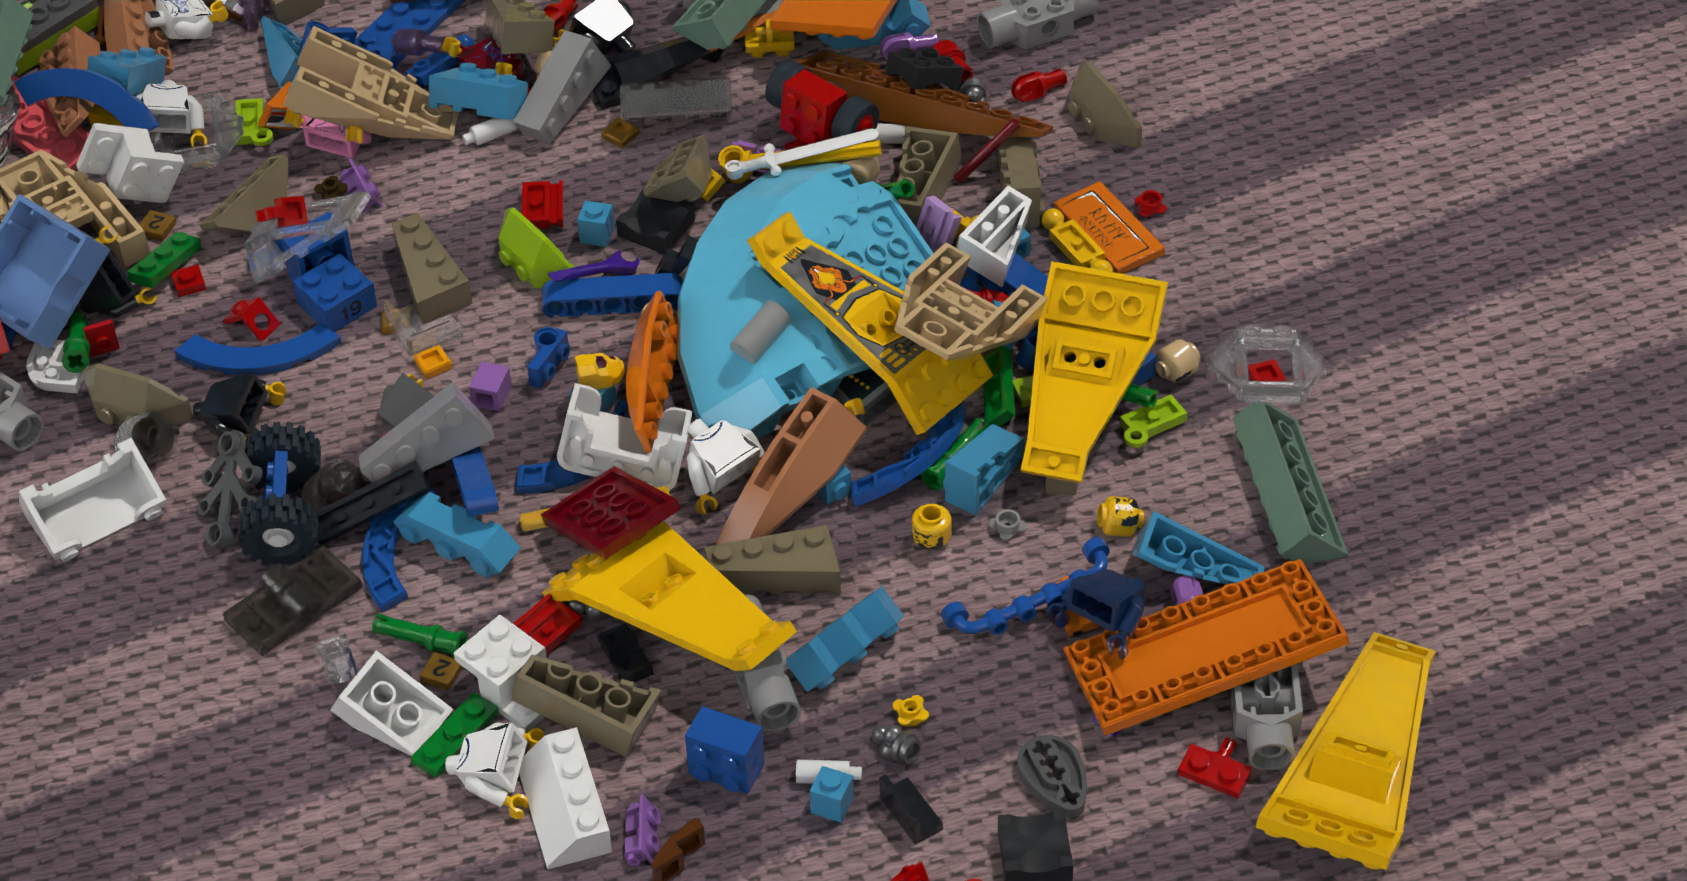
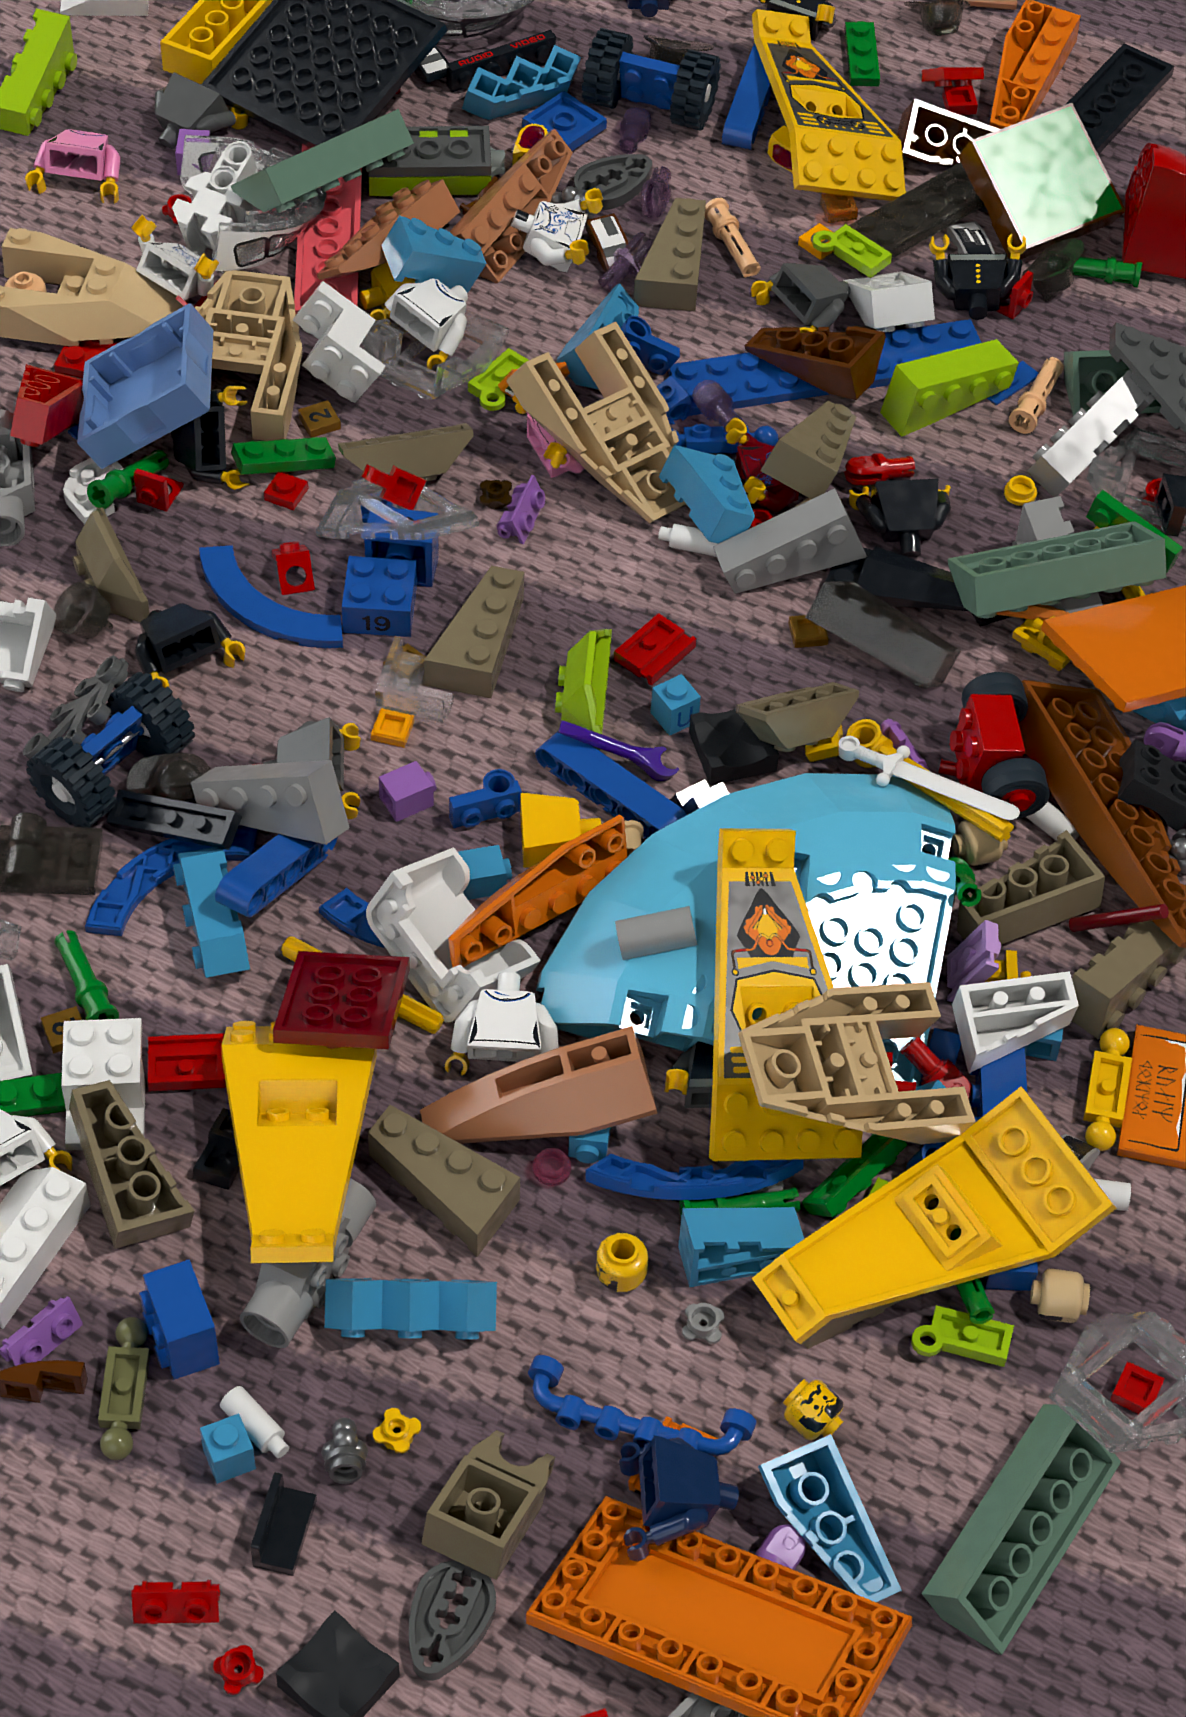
camera: 40 degrees right, 5 degrees up
(87, 86) = (374, 251): blue tile -> none
(599, 370) = (494, 851): yellow rock -> none
(604, 335) = (548, 824): none -> yellow torso
(729, 817) = (124, 1388): none -> olive plate
(827, 513) = (551, 1167): none -> clear pink plate
(1015, 700) = (486, 1507): none -> dark tan brick

